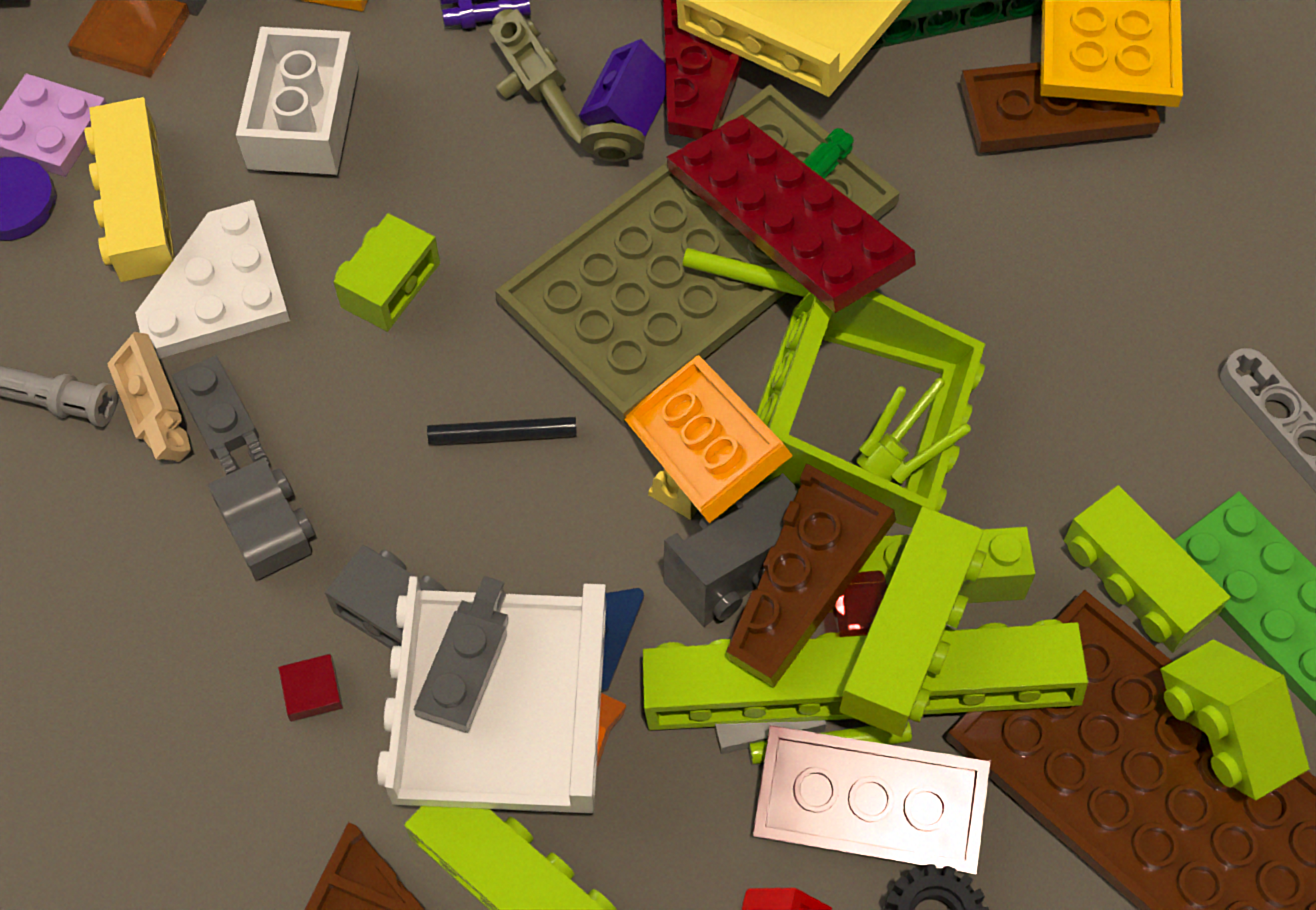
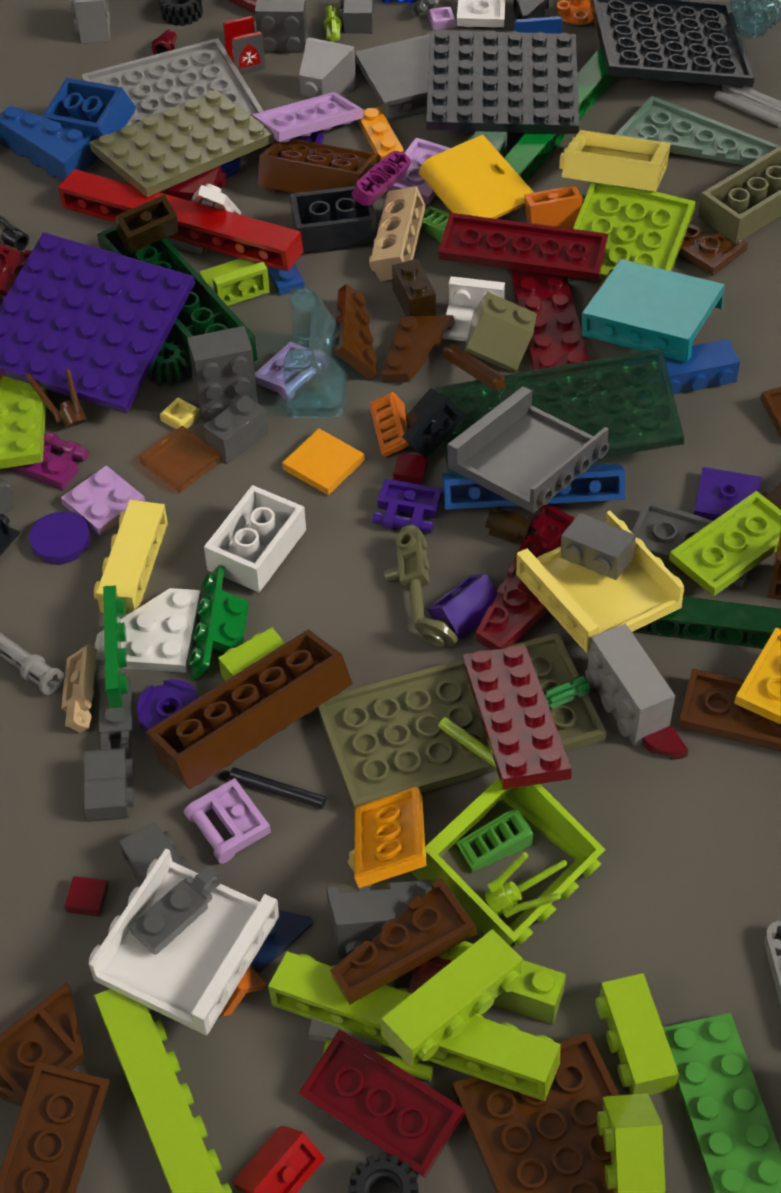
camera: 25 degrees right, 10 degrees down
(184, 334) = (115, 656): none -> green plate
(301, 405) = (163, 696): none -> dark purple plate
(303, 234) = (220, 622): none -> green bracket
(414, 337) = (249, 708): none -> reddish brown brick
(465, 487) = (236, 813): none -> lavender plate
(851, 364) = (490, 831): none -> bright green slope
(903, 117) = (629, 684): none -> light grey brick
(976, 179) = (666, 743): none -> dark red tile

